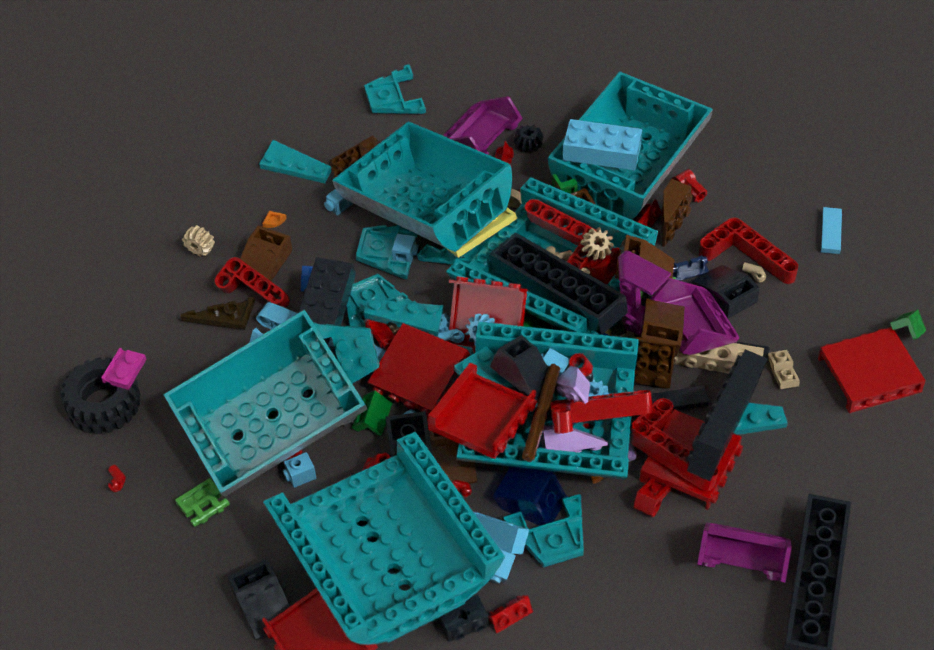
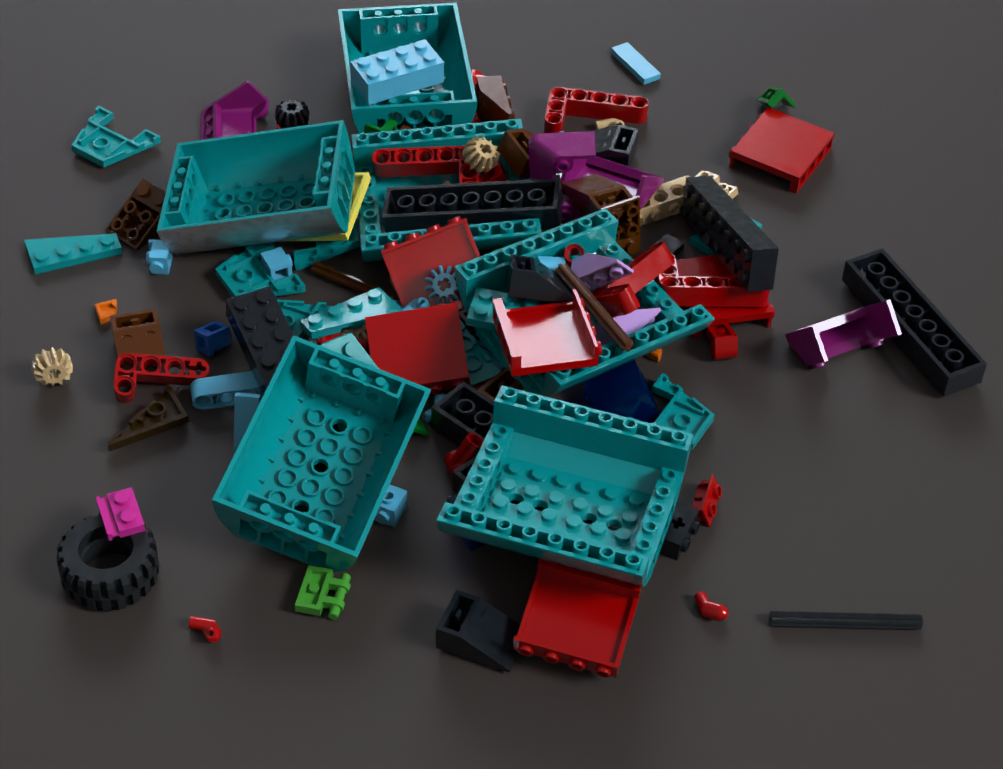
camera: 45 degrees left, 5 degrees down
(440, 286) = (346, 279): none -> reddish brown axle

